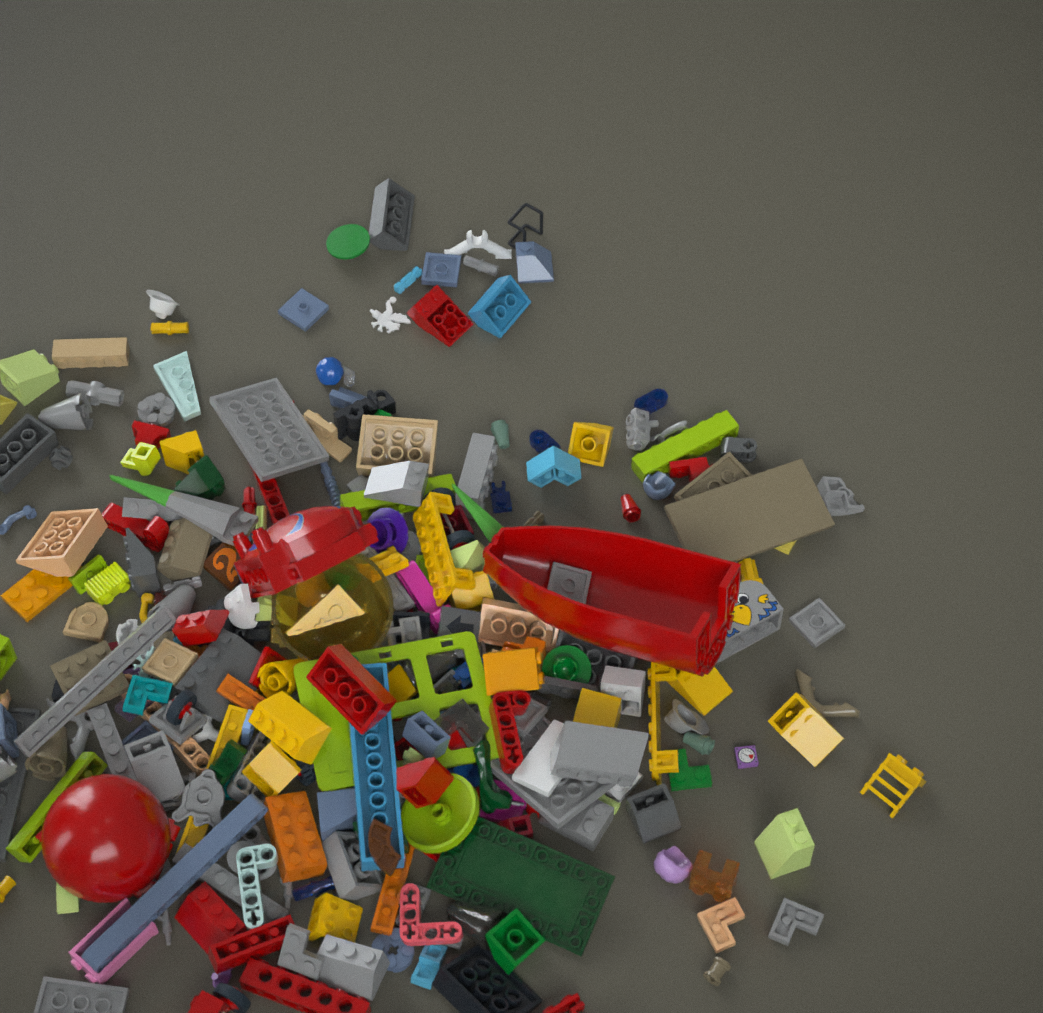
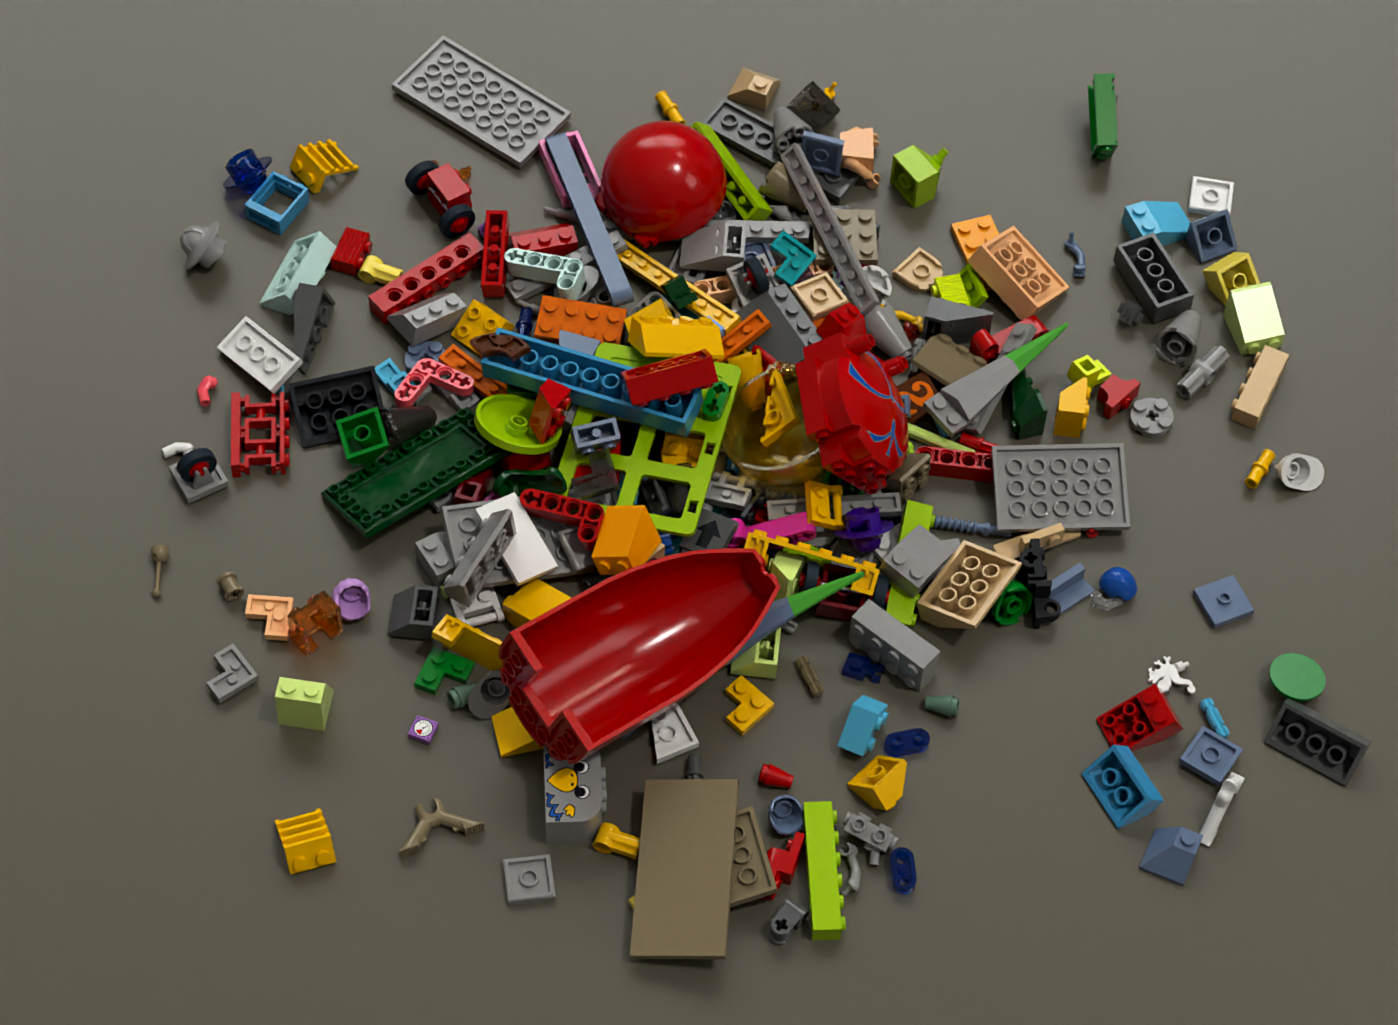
camera: 115 degrees right, 0 degrees up
(179, 383) = (1178, 448): light aqua wing -> none
(202, 800) = (655, 267): light grey tile -> none
(295, 957) = (463, 276): light grey plate -> none
(411, 756) = (583, 418): yellowish green plate -> none
(481, 265) = (1196, 798): light grey axle -> none
(522, 229) = (1201, 856): black piece -> none
(569, 582) = (693, 639): light grey tile -> none
(805, 729) = (412, 785): yellow slope -> none
(838, 497) = (666, 988): light grey slope -> none

